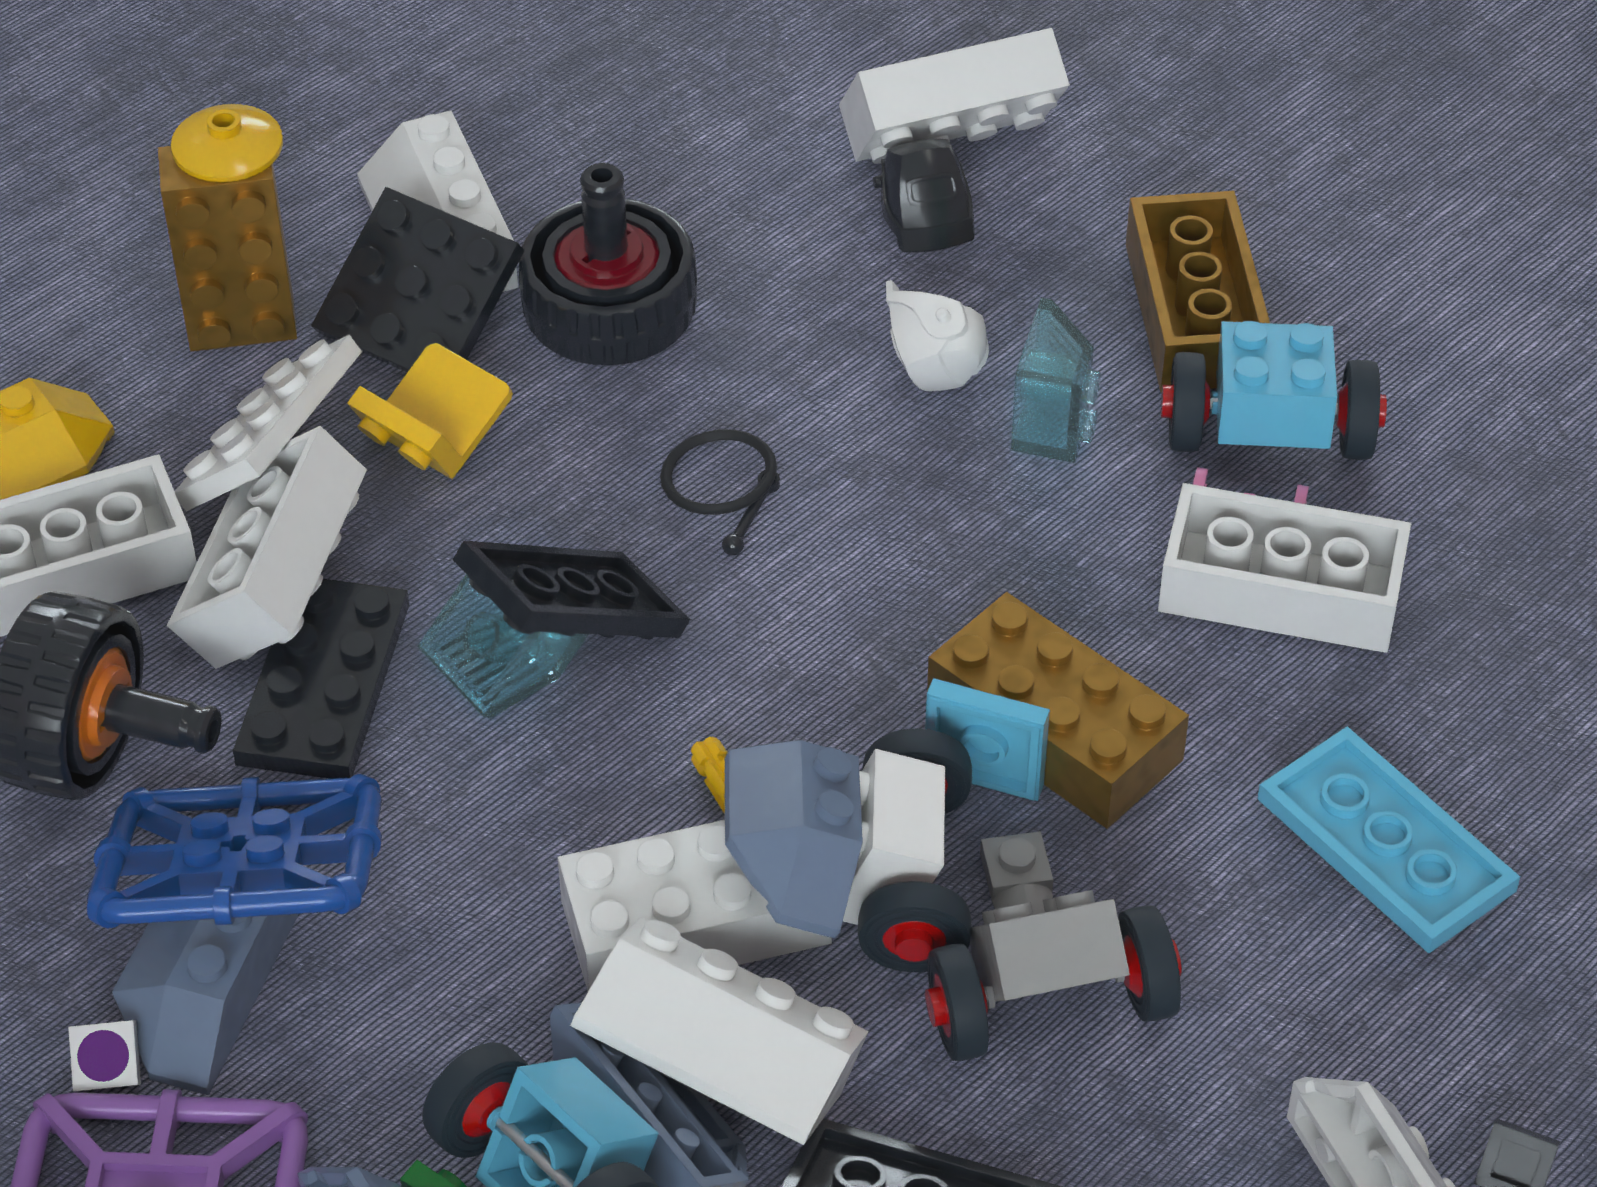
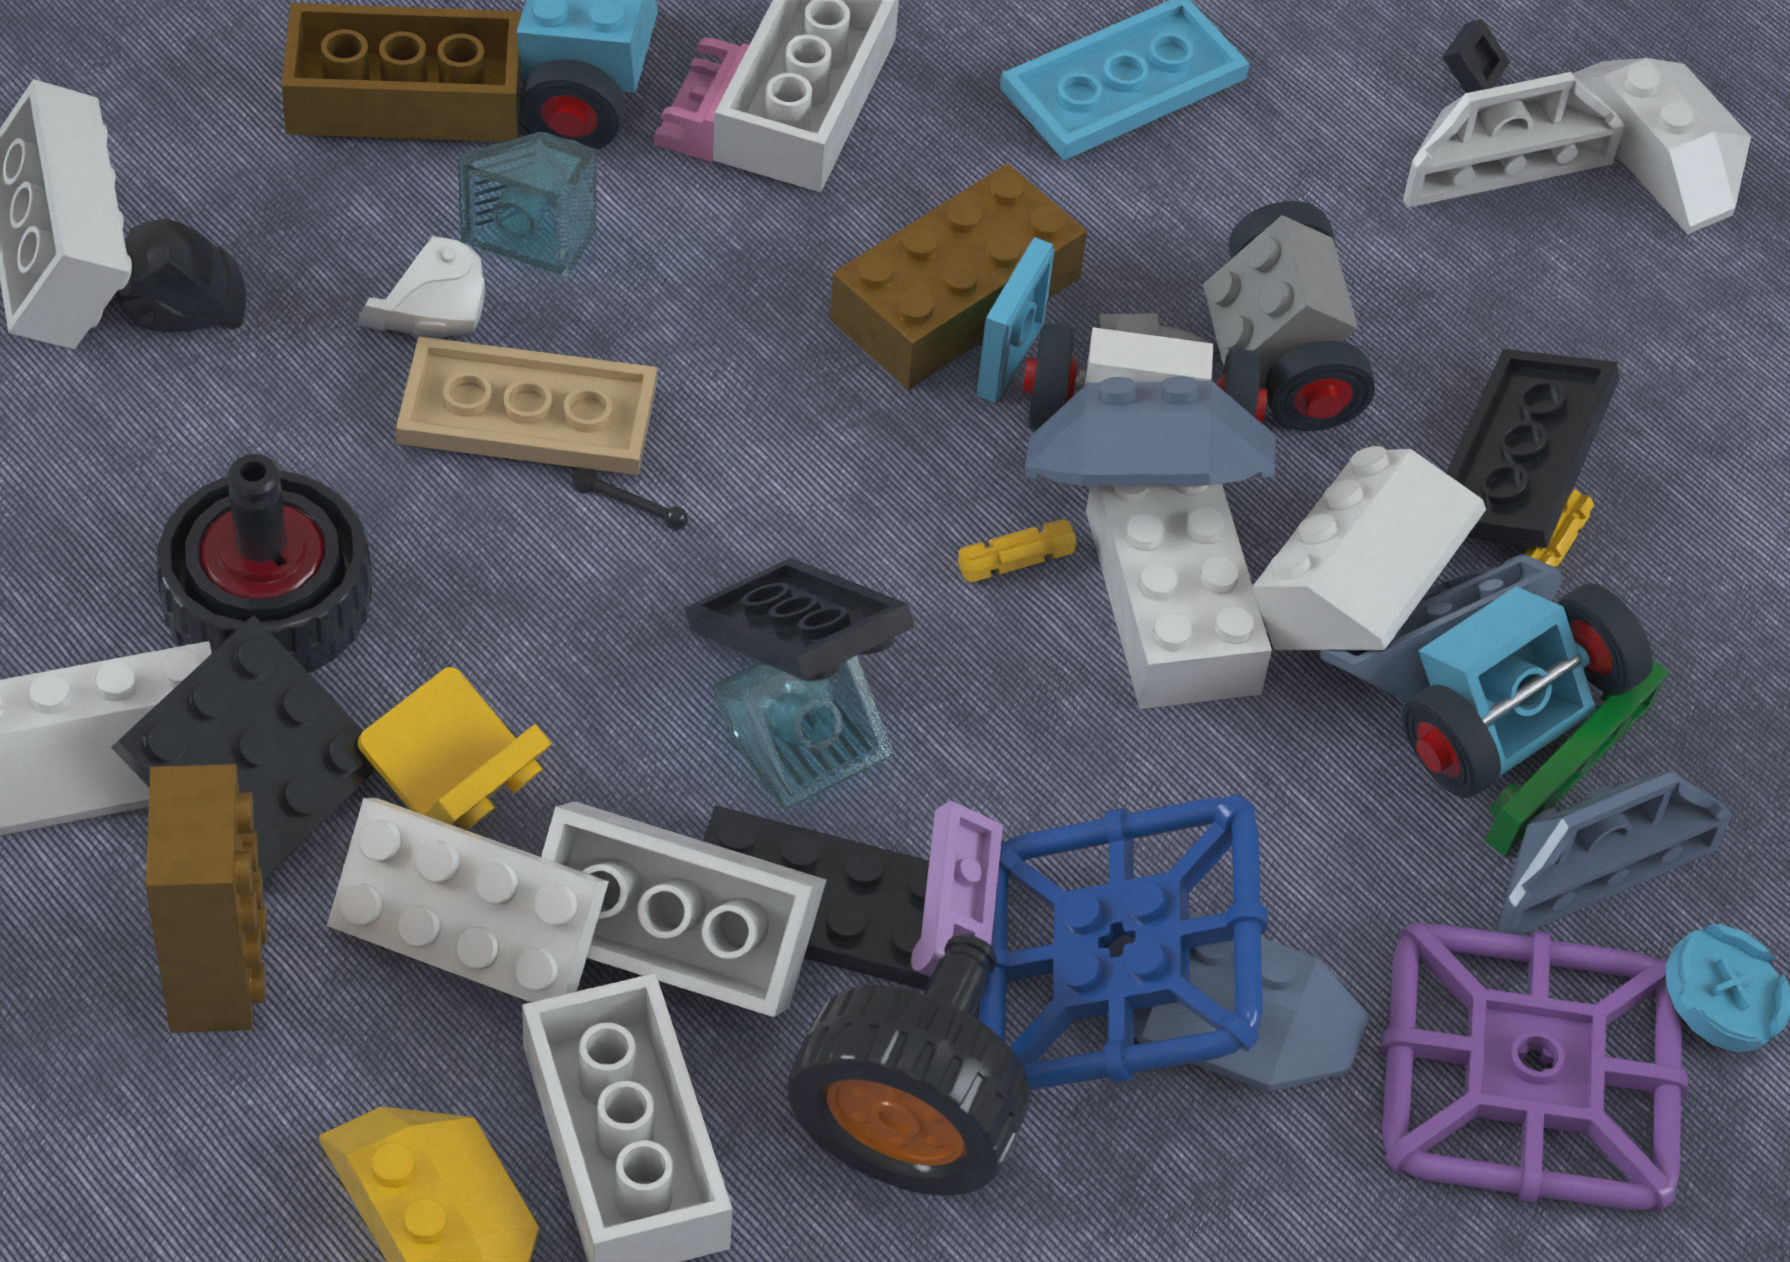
camera: 90 degrees left, 5 degrees up
(104, 1055) = (1342, 1098): tile -> none
(227, 143) = (165, 829): yellow dish -> none
(302, 744) = (959, 882): none -> lavender plate
(726, 507) = (569, 567): black tyre -> none
(834, 428) = (527, 405): none -> tan plate

